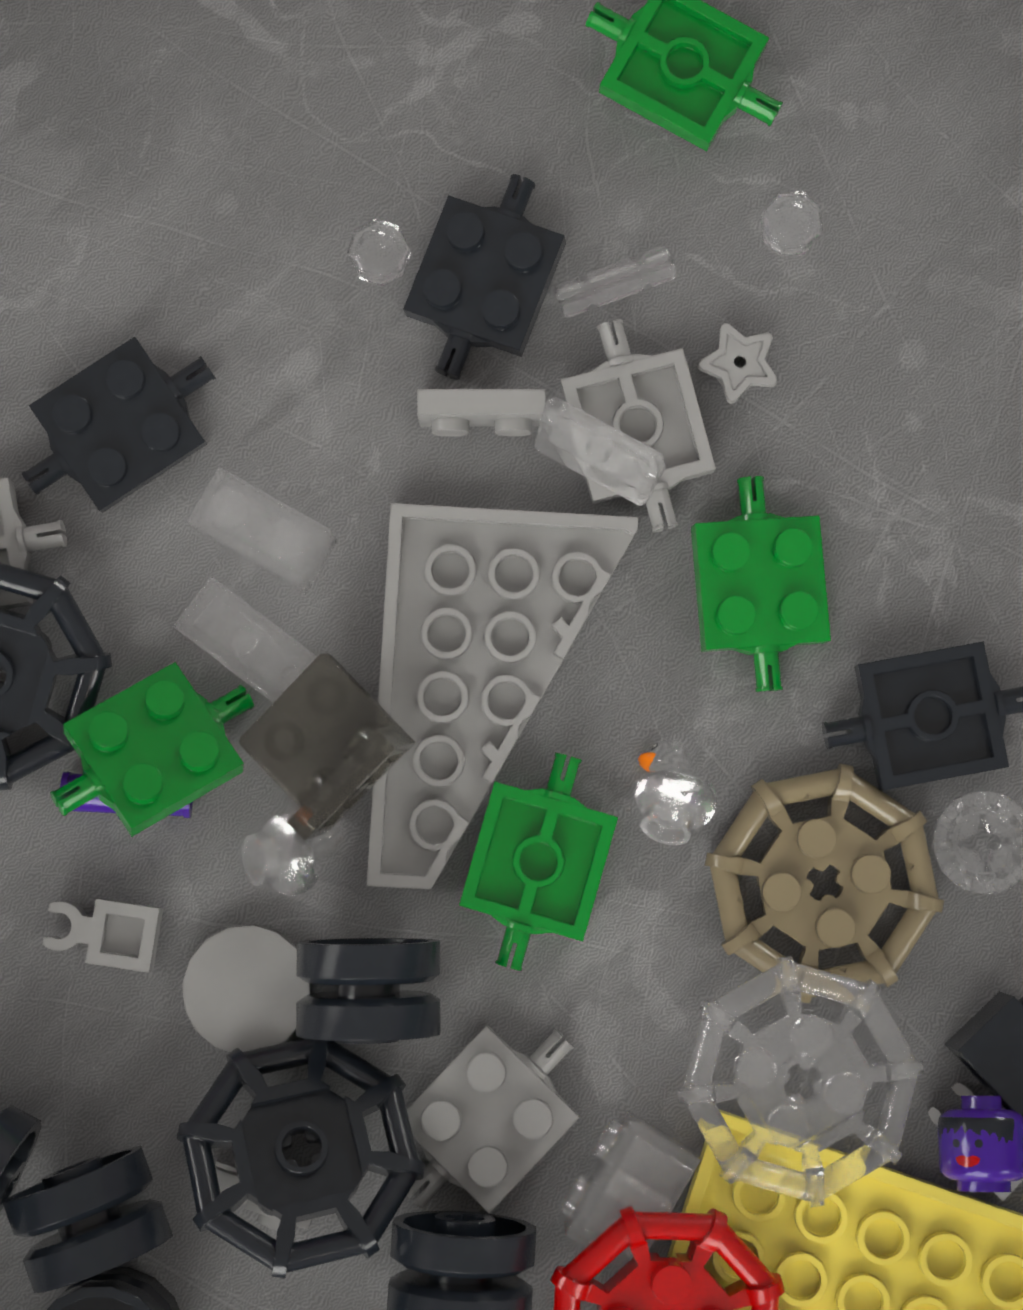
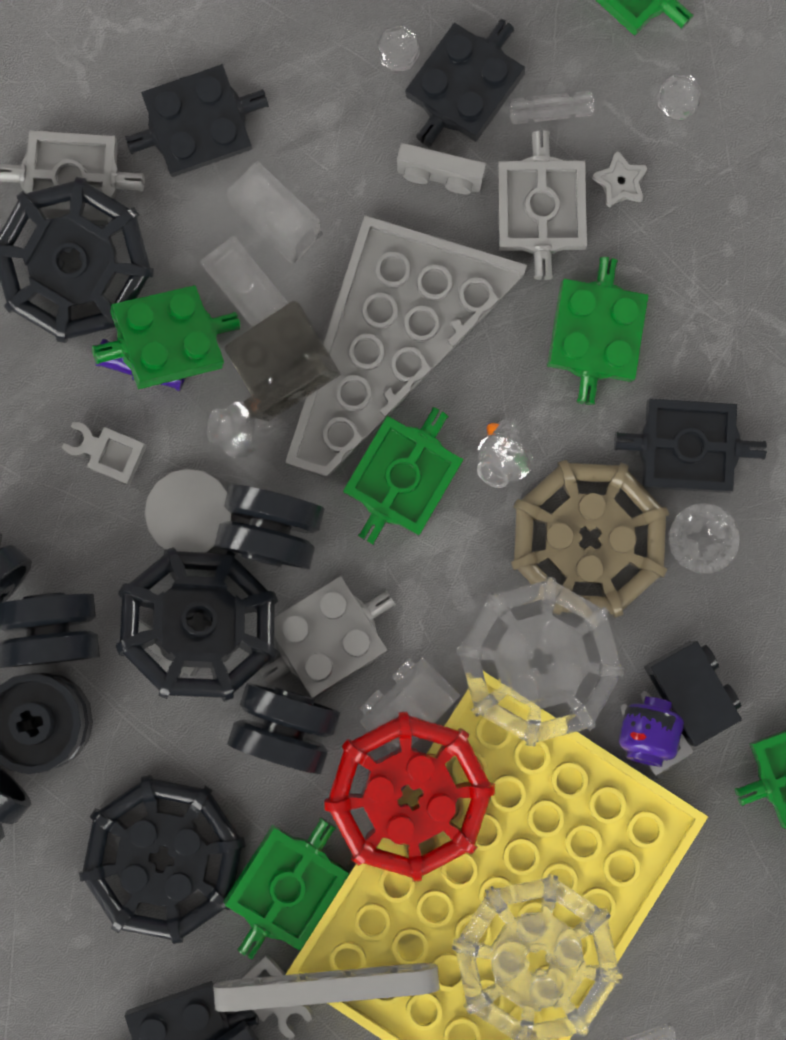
camera: 15 degrees right, 0 degrees up
(599, 451) = (511, 213): clear slope -> none

